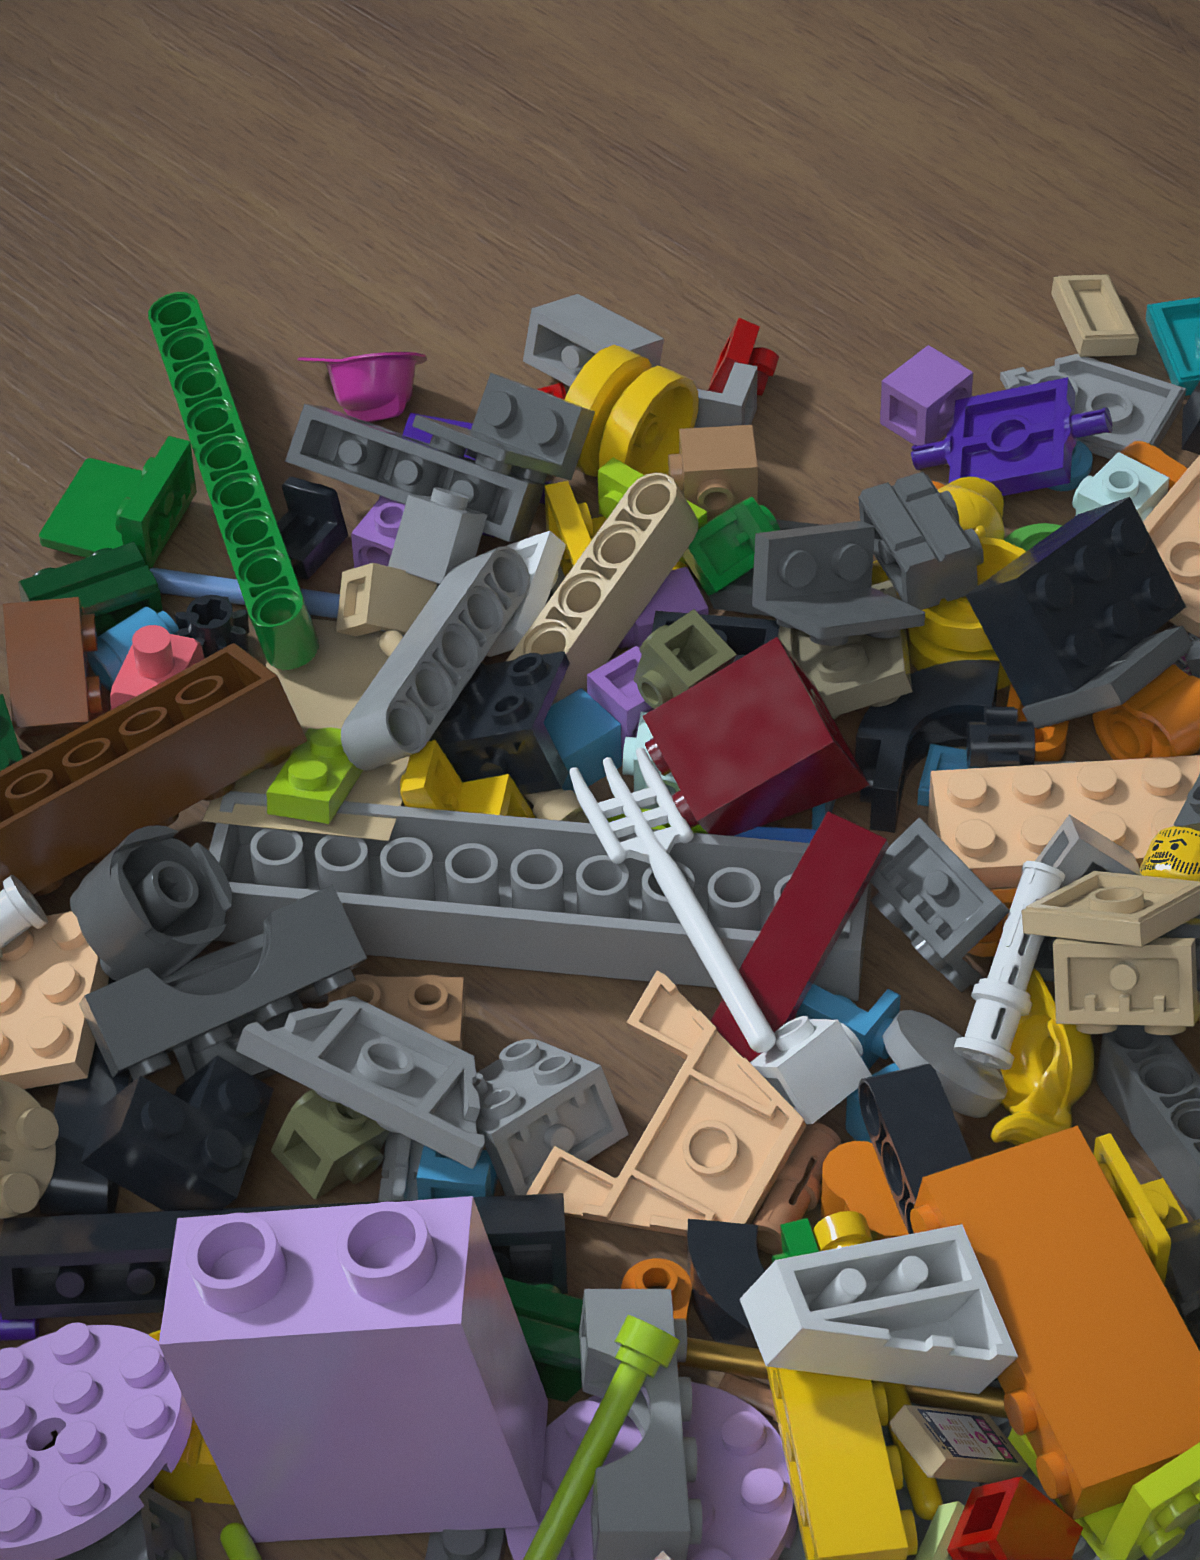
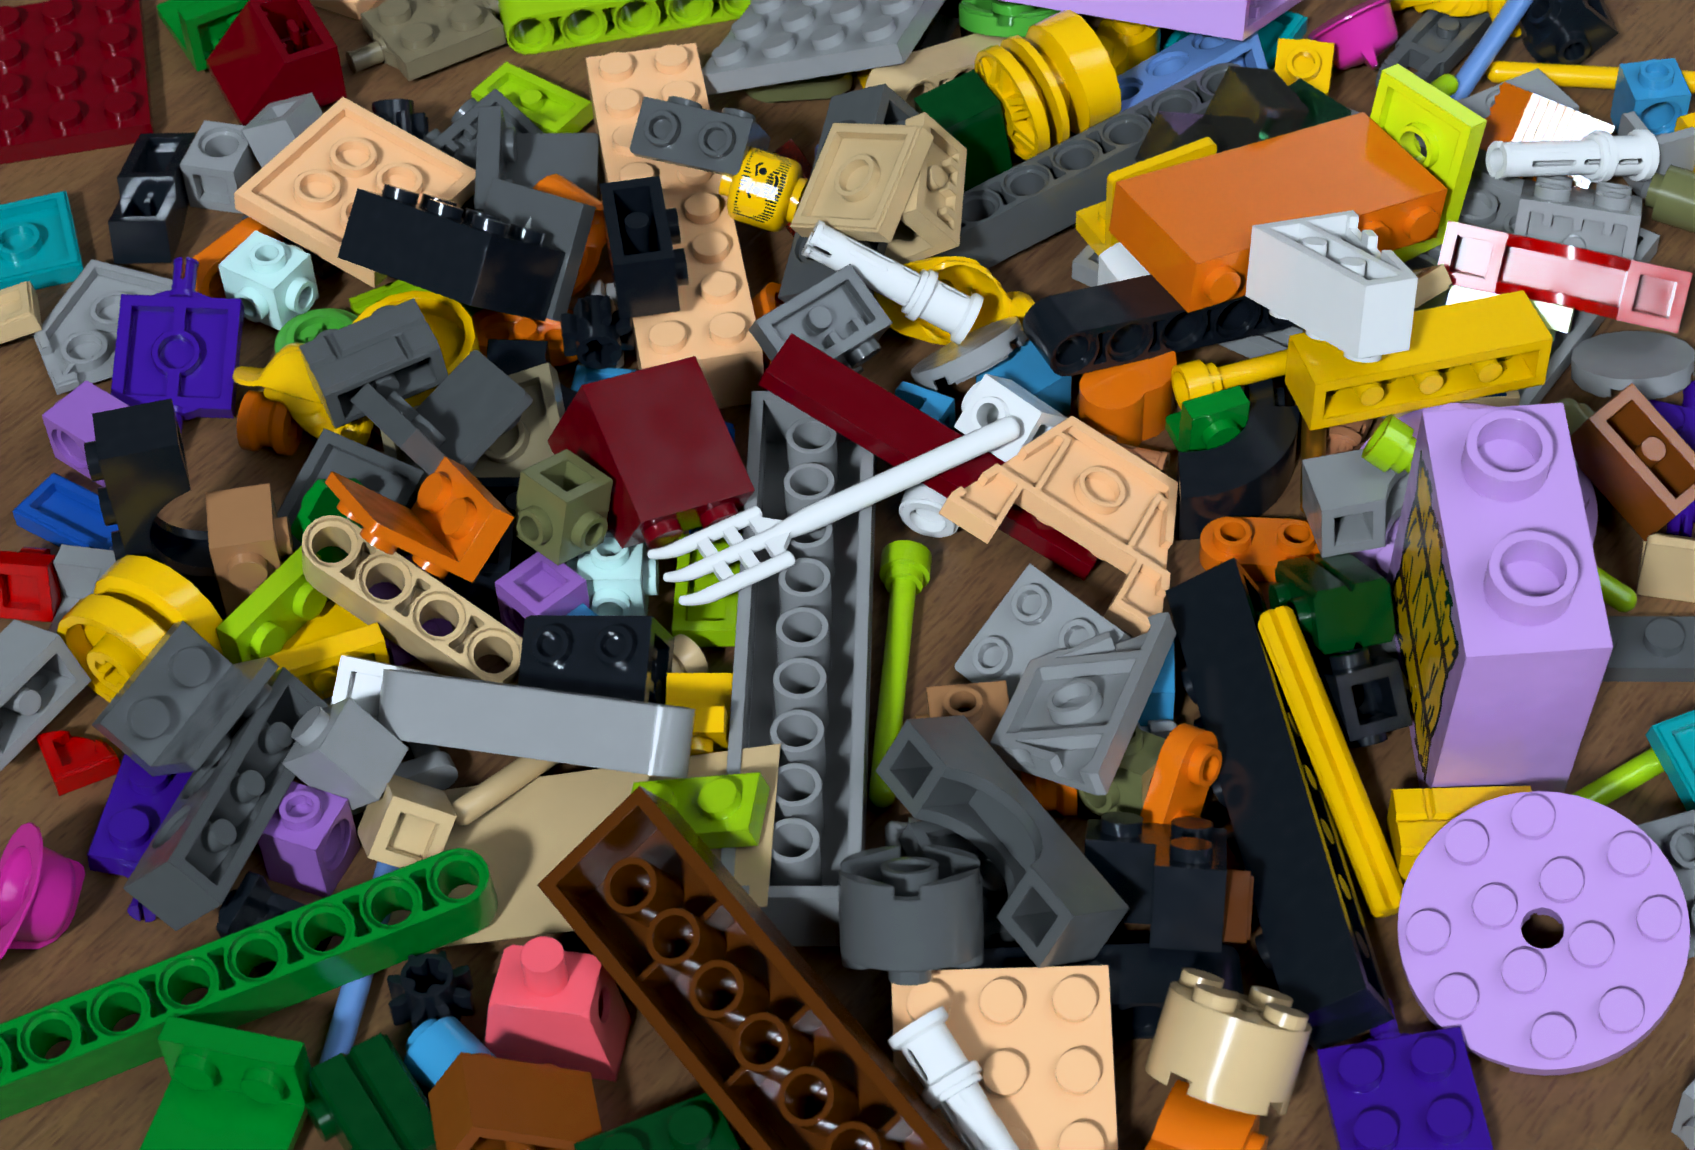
camera: 95 degrees left, 0 degrees up
(126, 1182) = (1238, 907): none -> reddish brown tile
(297, 1169) = (1182, 775): none -> orange plate
(521, 984) = (905, 572): none -> lime piece
(678, 553) = (446, 529): none -> orange bracket
(722, 353) = (144, 469): none -> black arch
(827, 404) = (65, 515): none -> blue tile
(1051, 733) = (641, 247): none -> black brick
(1081, 850) = (764, 251): light grey panel -> none

